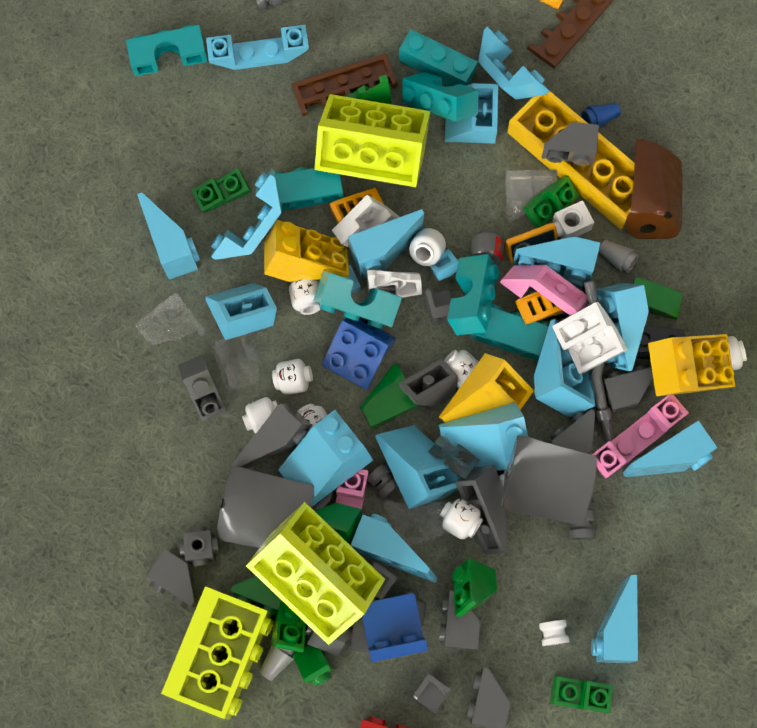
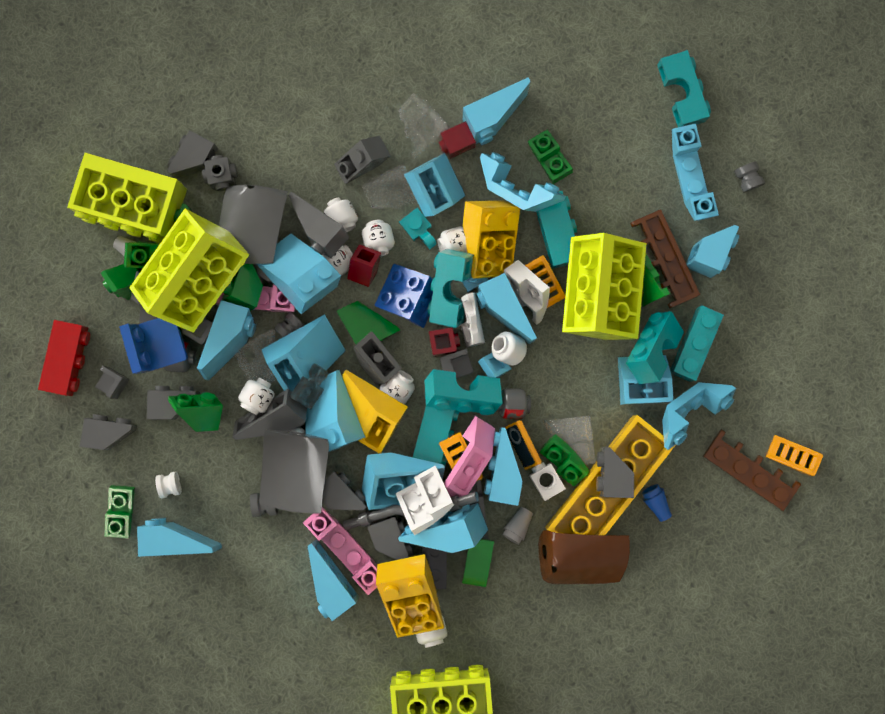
camera: 85 degrees right, 10 degrees up
(192, 283) = (456, 140): none -> dark red brick
(282, 336) = (417, 226): none -> teal plate
(322, 392) = (364, 265): none -> dark red brick
(344, 34) = (711, 253): none -> medium azure slope
(415, 314) = (444, 341): none -> dark red brick

